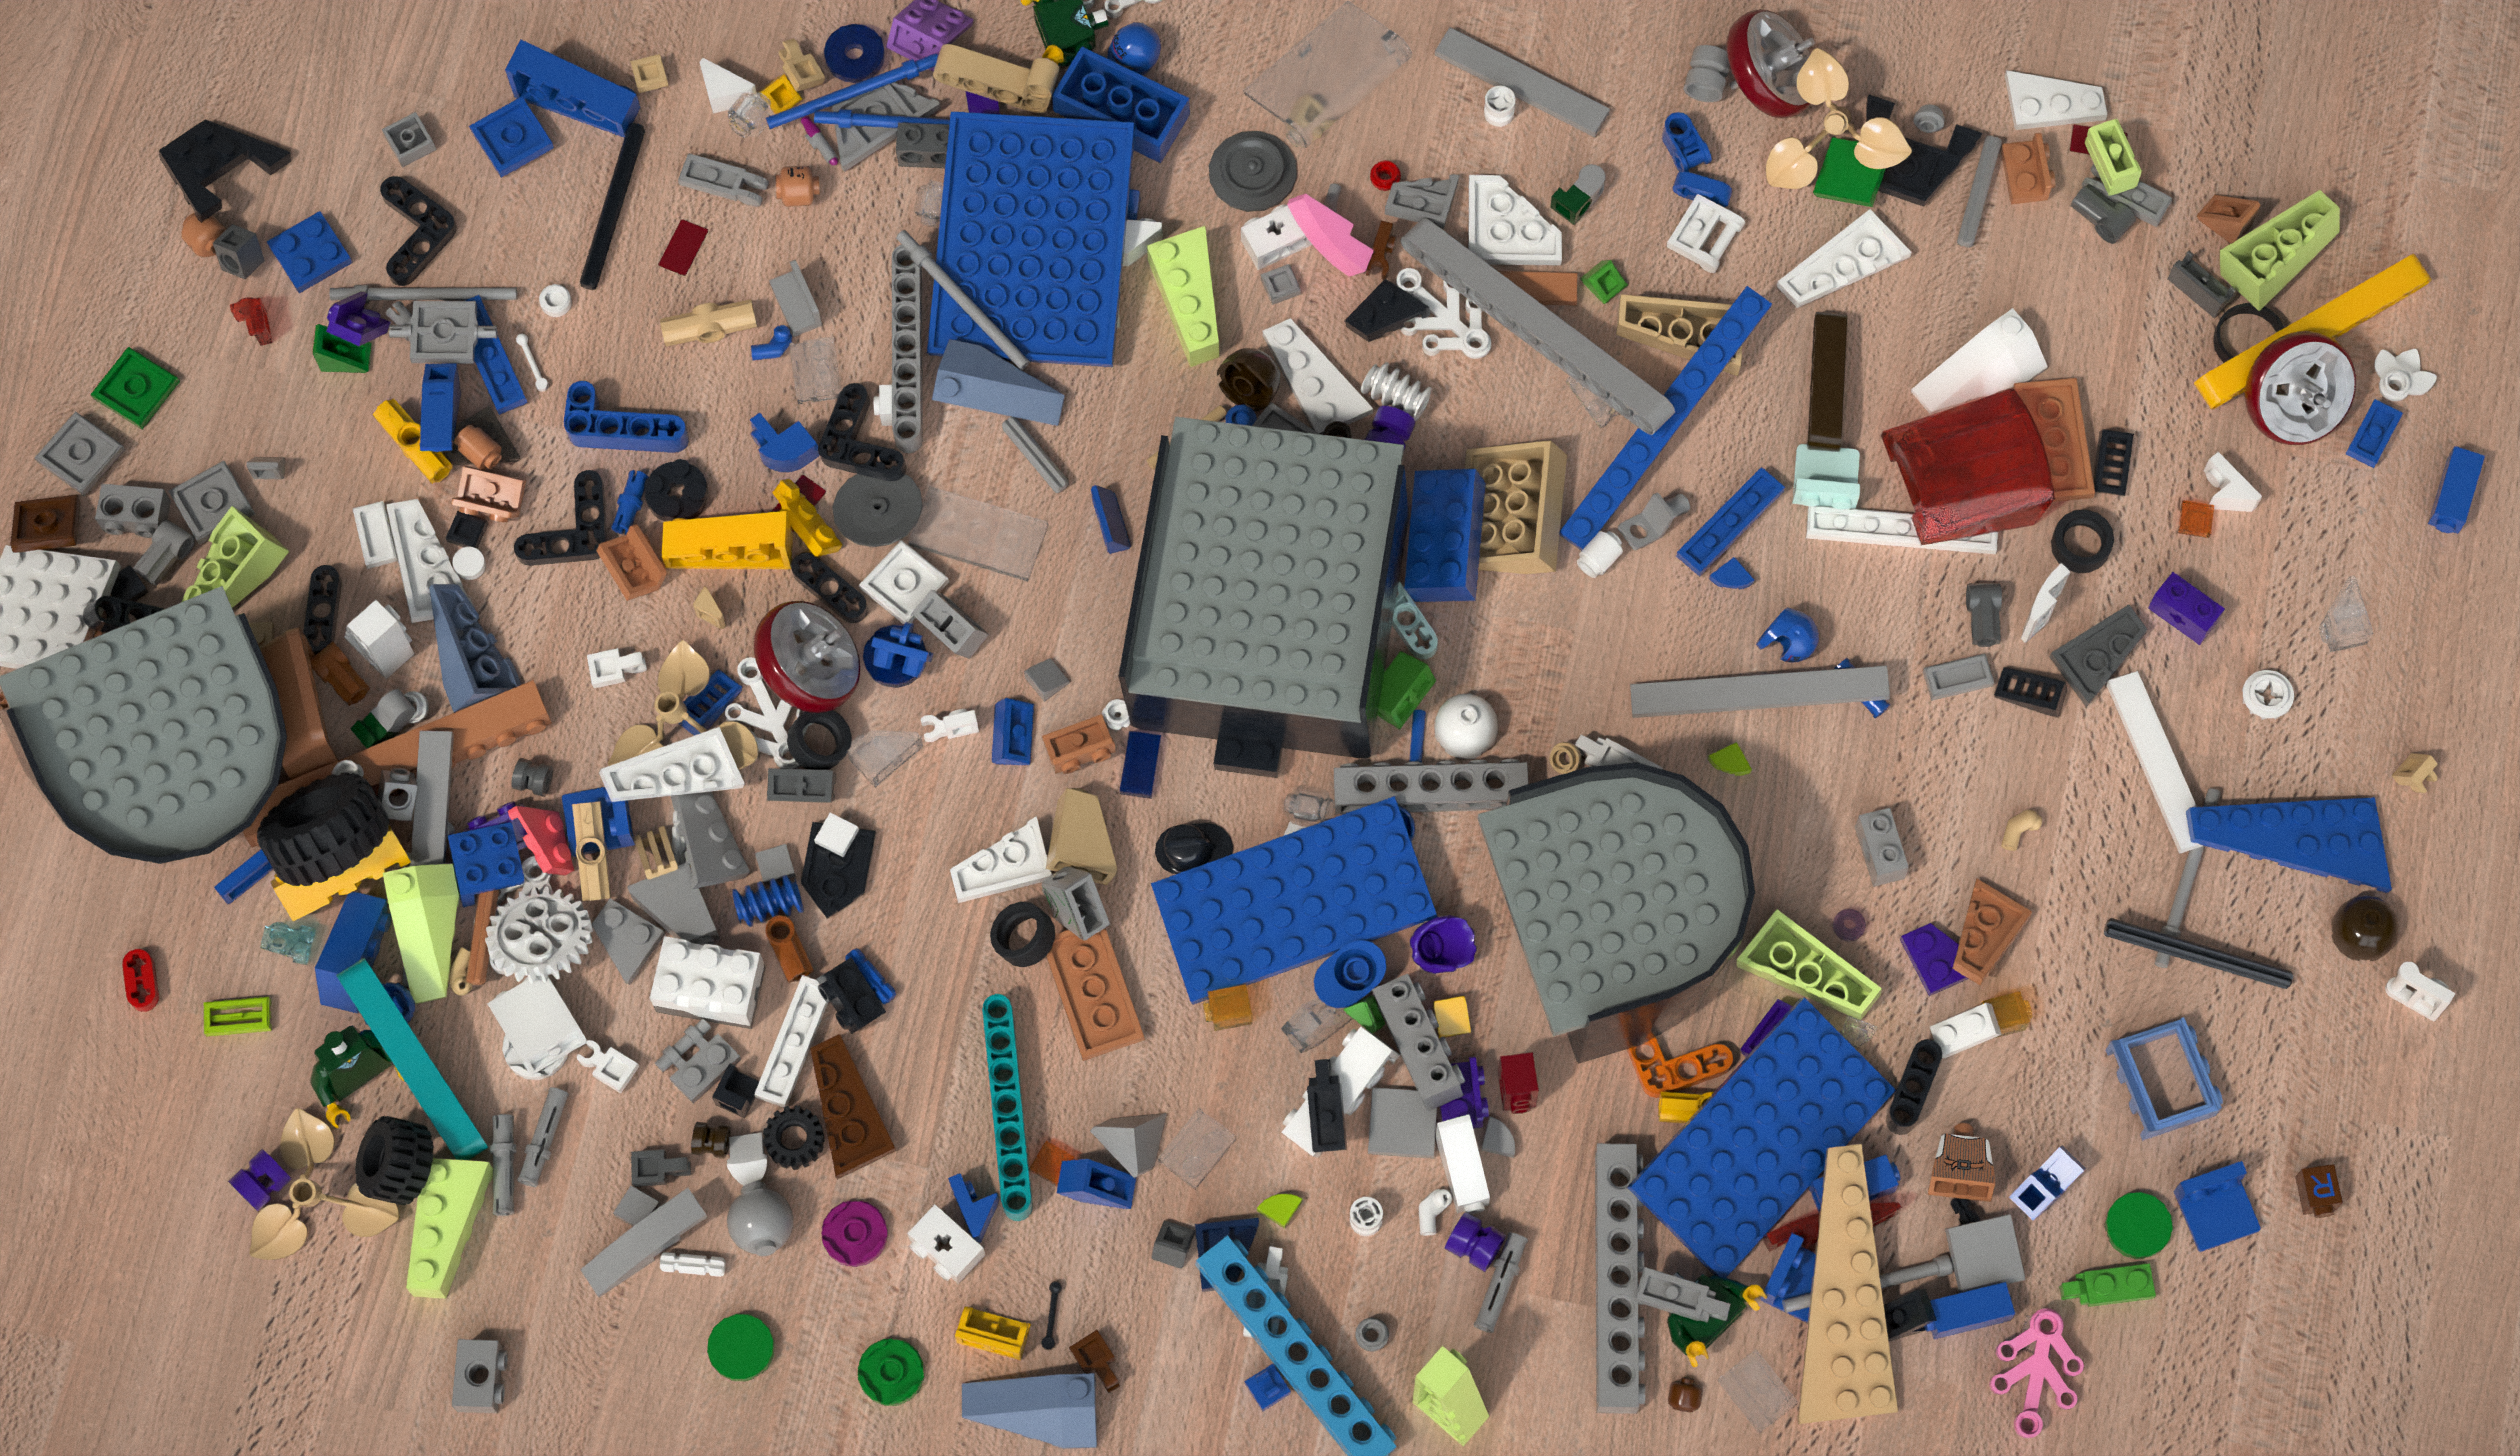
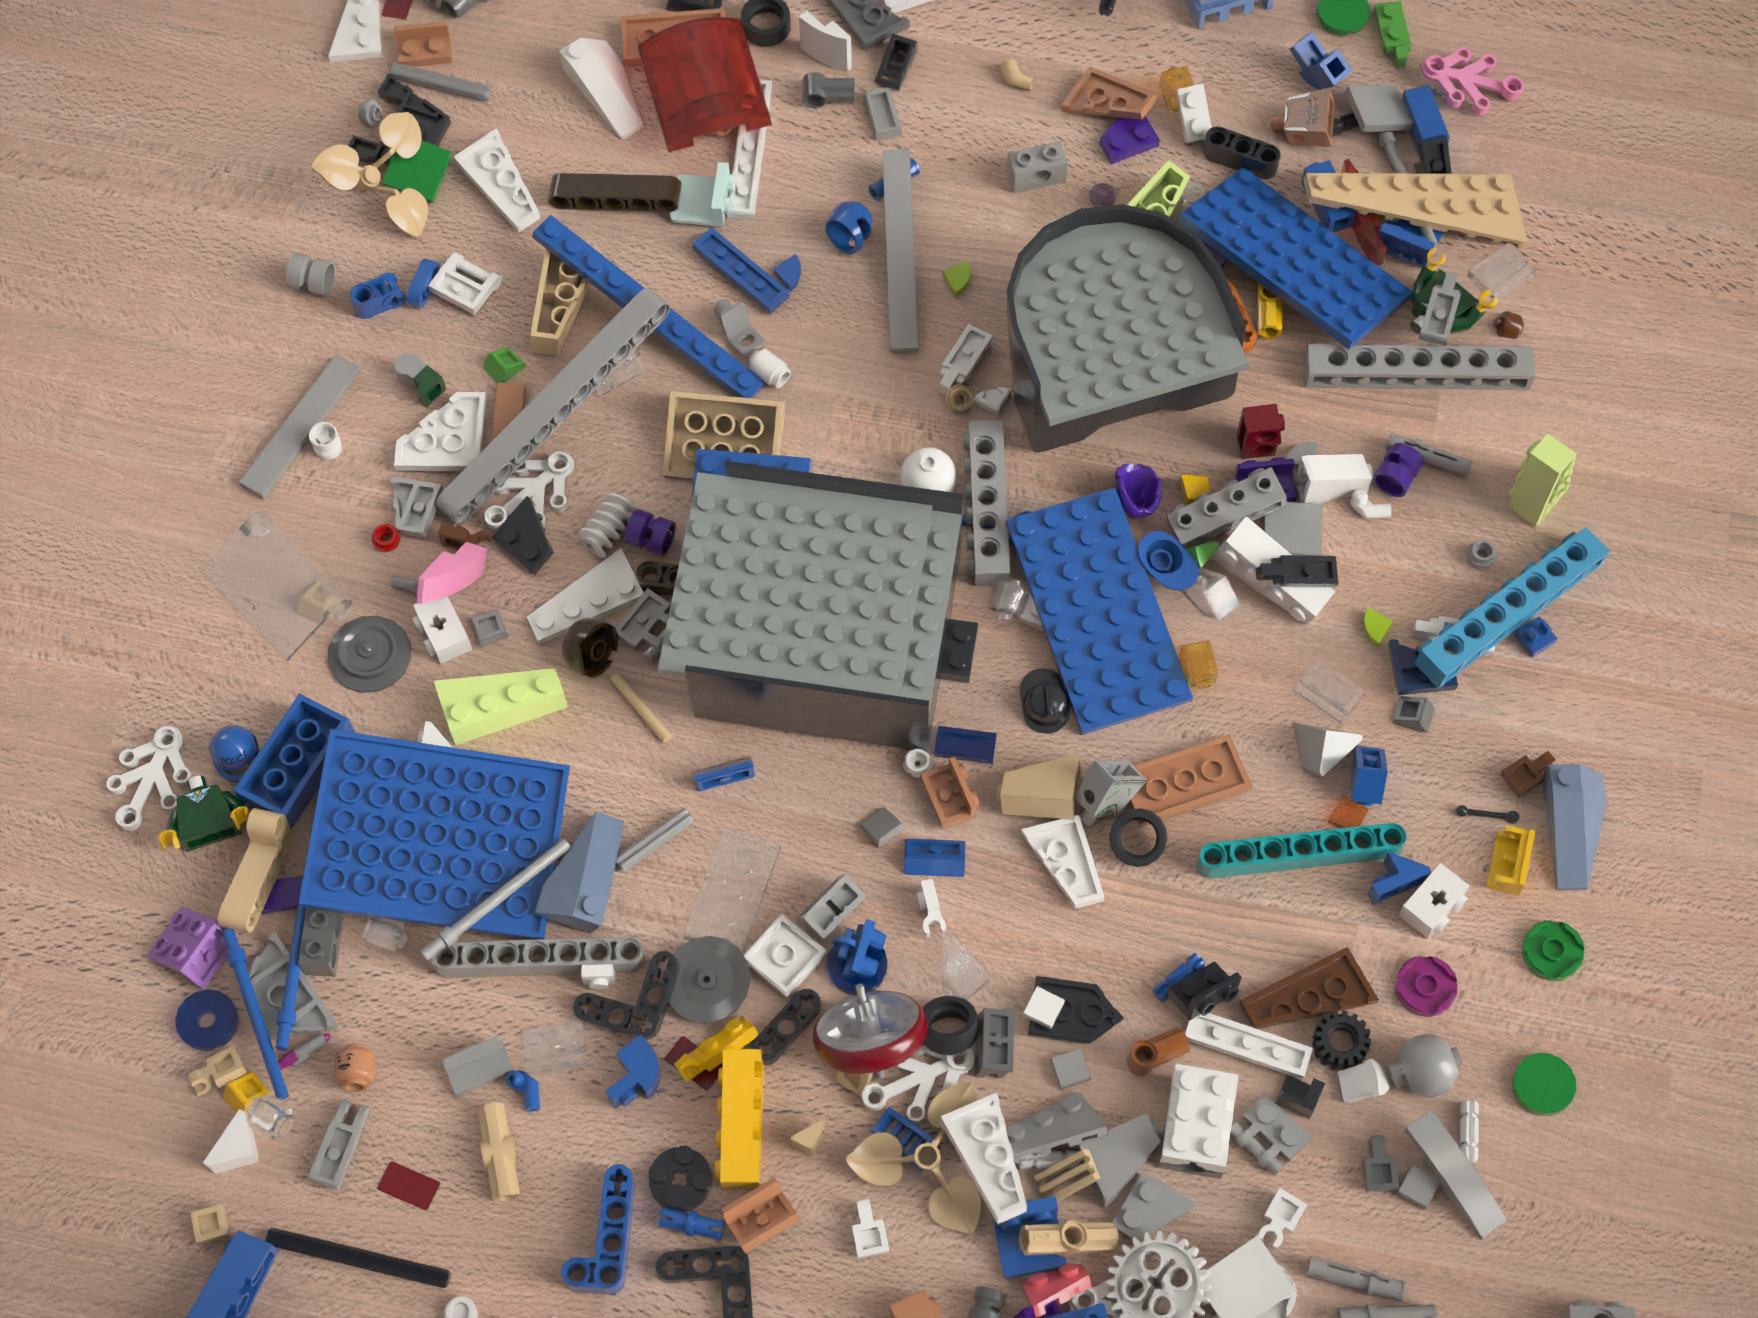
camera: 90 degrees left, 5 degrees down
(710, 1140) = (1350, 1116): dark brown wheel -> none
(767, 900) = (1110, 1071): blue piece -> none
(1241, 415) = (626, 661): blue tile -> none
(1364, 1222) = (1379, 562): white wheel -> none
(1757, 69) = (312, 215): wheel -> none

